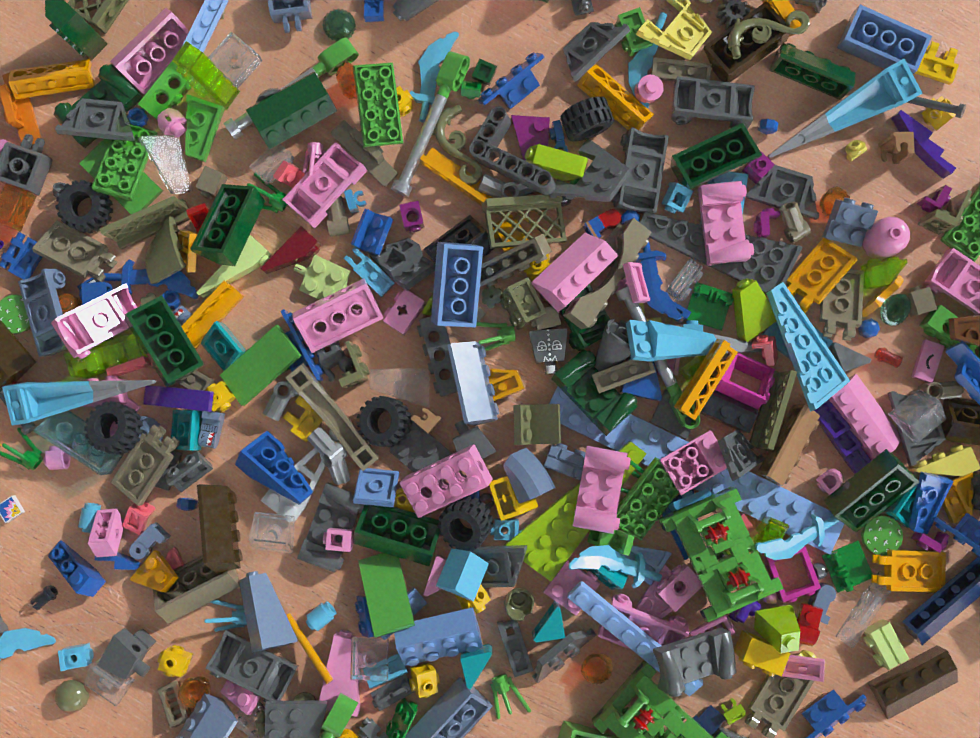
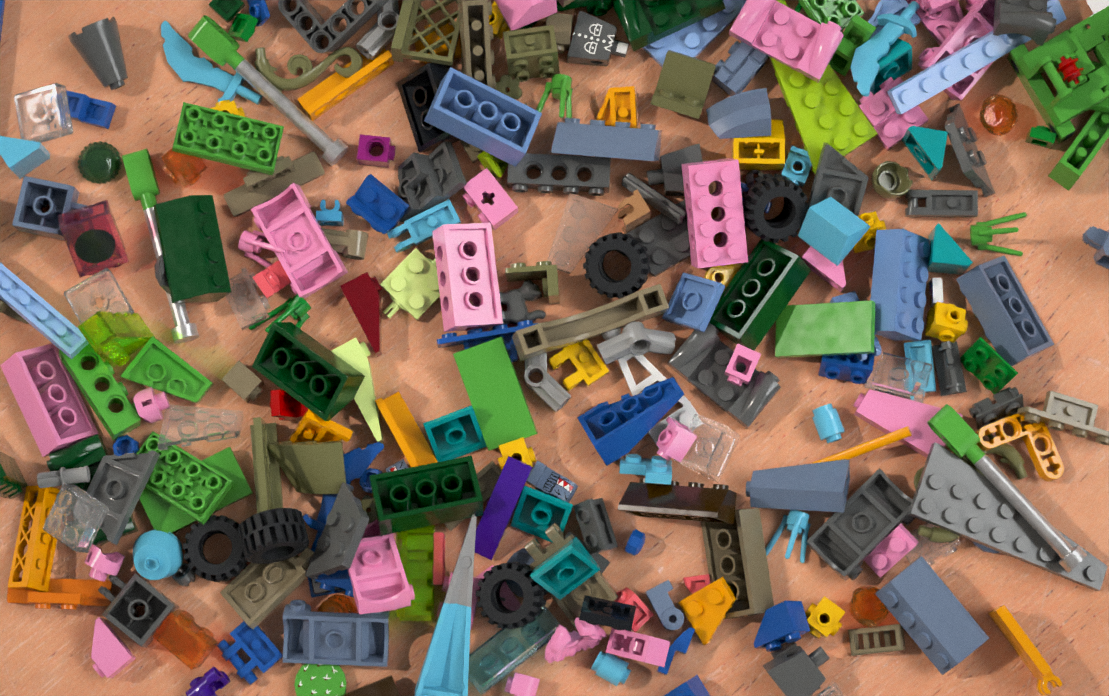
camera: 70 degrees left, 5 degrees down
(45, 130) = (102, 563): none -> bright pink piece
(64, 165) = (157, 554): none -> medium azure cone
(66, 97) = (75, 518): none -> clear brick
(95, 79) = (62, 476): none -> light grey axle
(95, 241) = (273, 535): none -> black tyre
(98, 481) = (567, 644): none -> bright pink piece
(113, 289) = (340, 535): none -> dark grey wing
(118, 503) = (607, 613): none -> black bracket
(143, 459) = (565, 569): none -> teal slope
(157, 634) = (780, 625): none -> blue slope
(244, 498) = (655, 470): none -> medium azure plate
(267, 509) = (675, 440): none -> bright pink brick
(275, 37) = (93, 238): none -> clear pink brick
(445, 431) = (654, 198): none -> dark grey axle
(445, 664) = (935, 291): none -> white tile
(592, 705) = (1041, 137): none -> green plate

